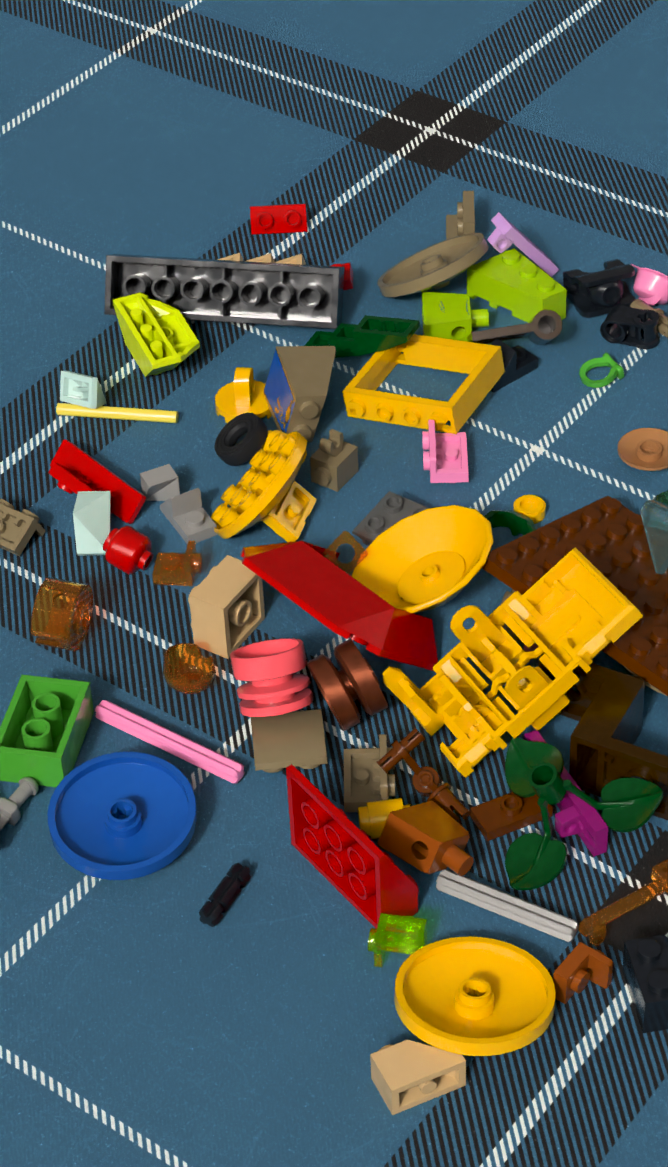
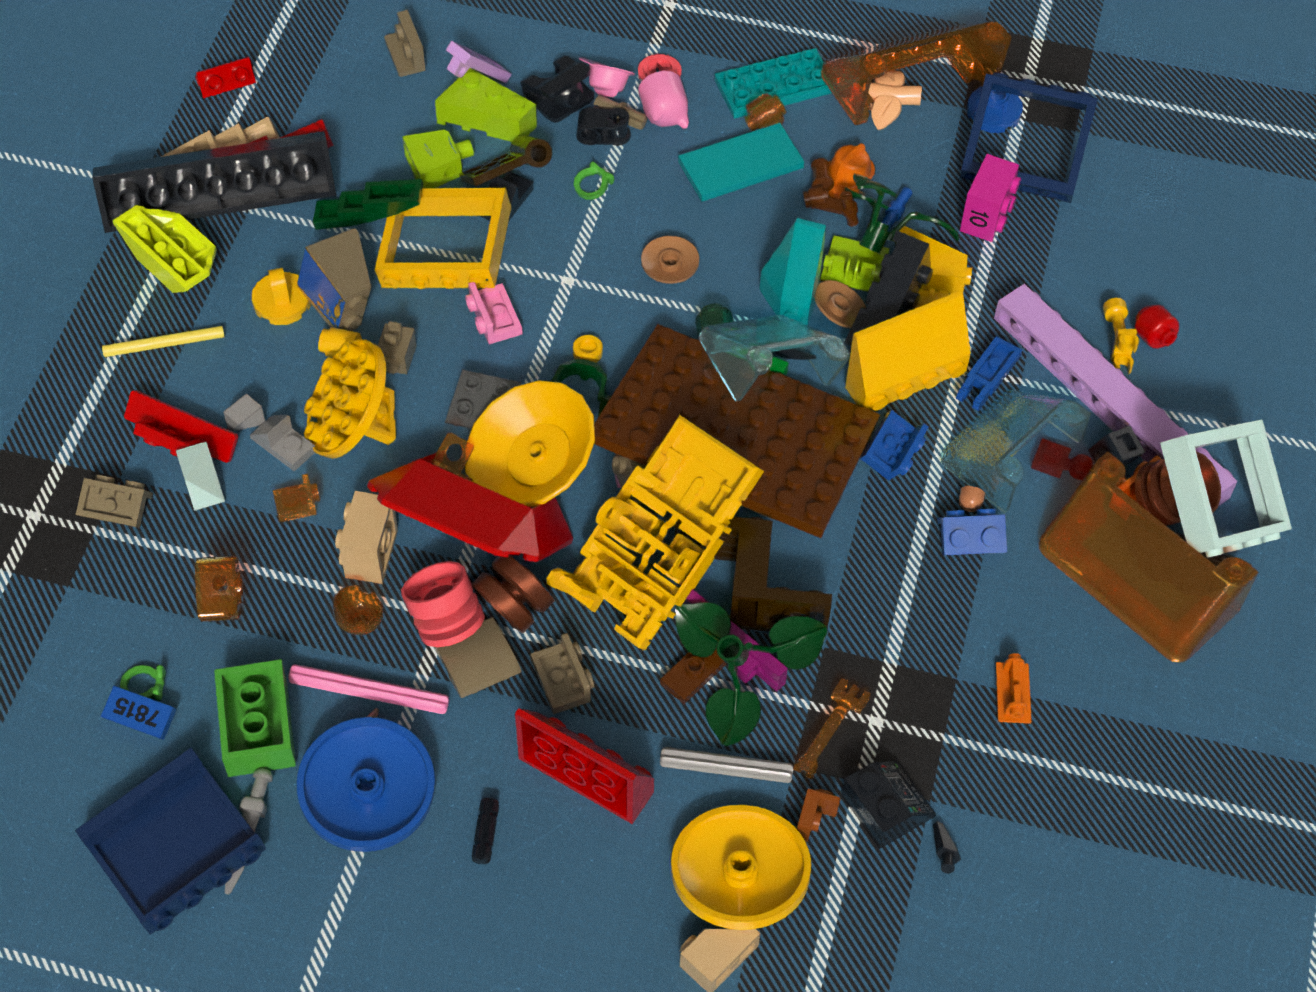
camera: 25 degrees left, 15 degrees up
(81, 390) = (121, 329): light aqua slope -> none
(128, 550) = (245, 496): red head -> none
(233, 431) = (285, 341): black tyre -> none
(375, 814) = (593, 712): yellow brick -> none
(398, 935) = (649, 824): clear neon green bracket -> none
(425, 779) = (616, 666): reddish brown pin -> none
(427, 839) = (643, 726): dark orange torso -> none
(433, 266) = (401, 104): dark tan dish -> none

